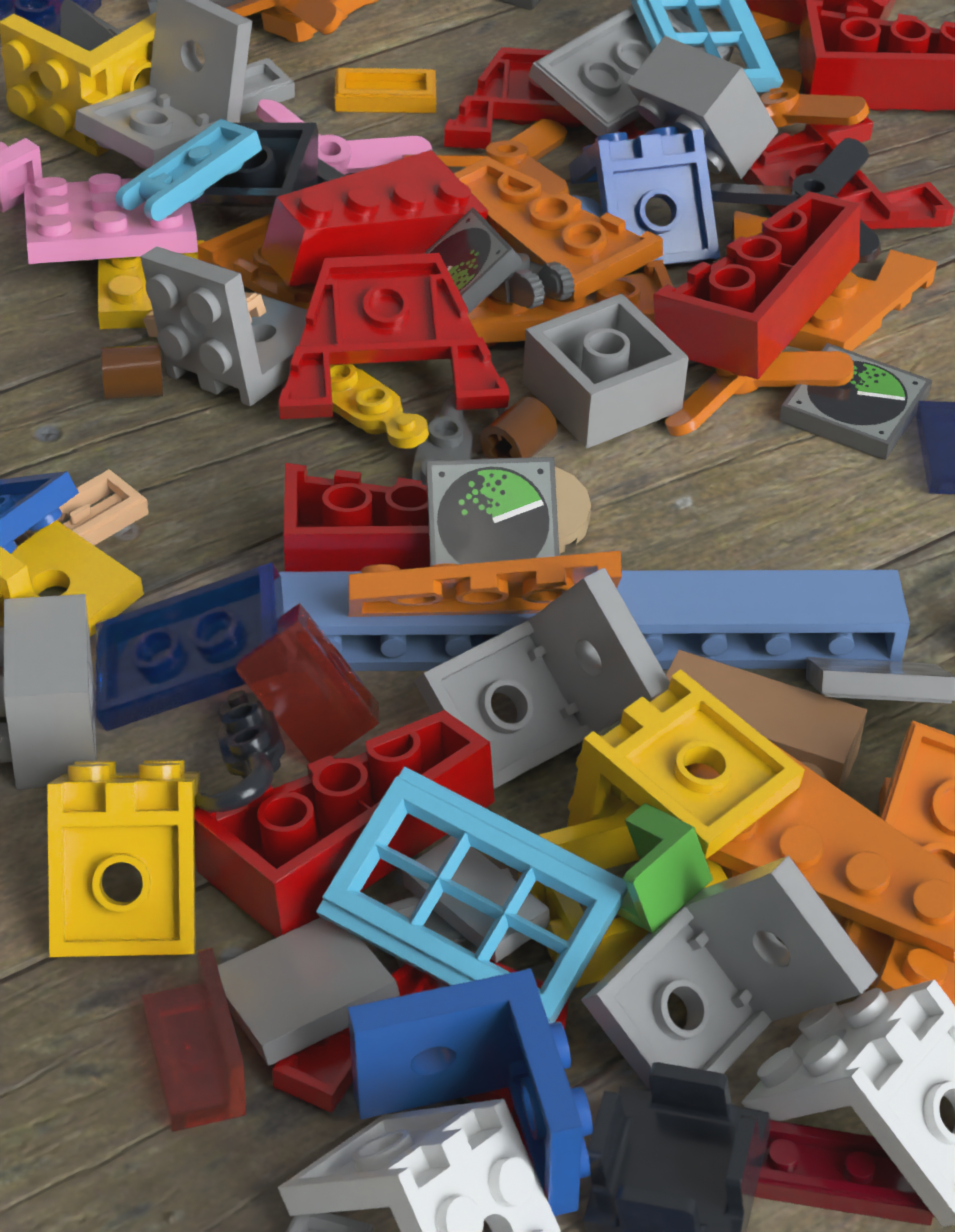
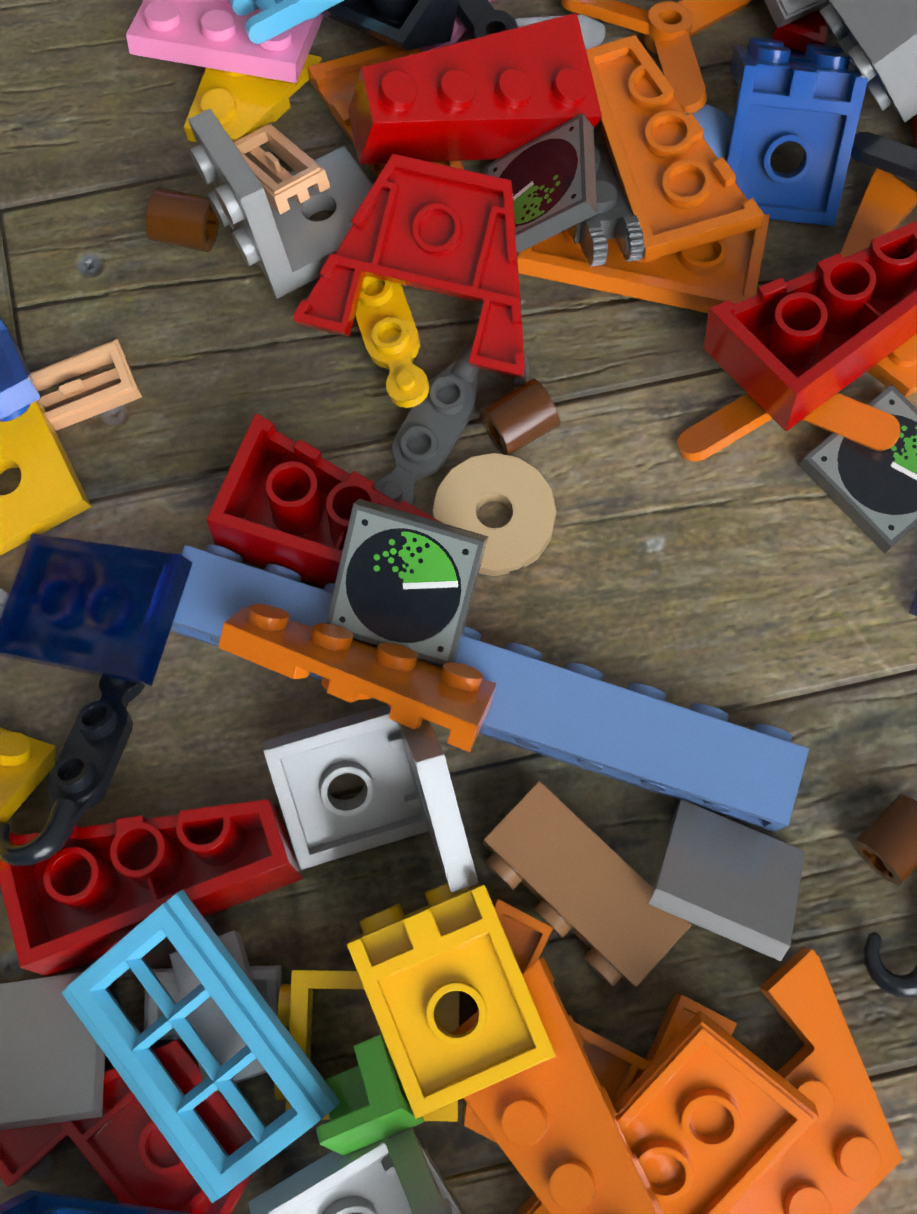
camera: 25 degrees right, 30 degrees up
(309, 687) = (176, 701): clear red panel -> none
(604, 370) = (635, 366): light grey brick -> none

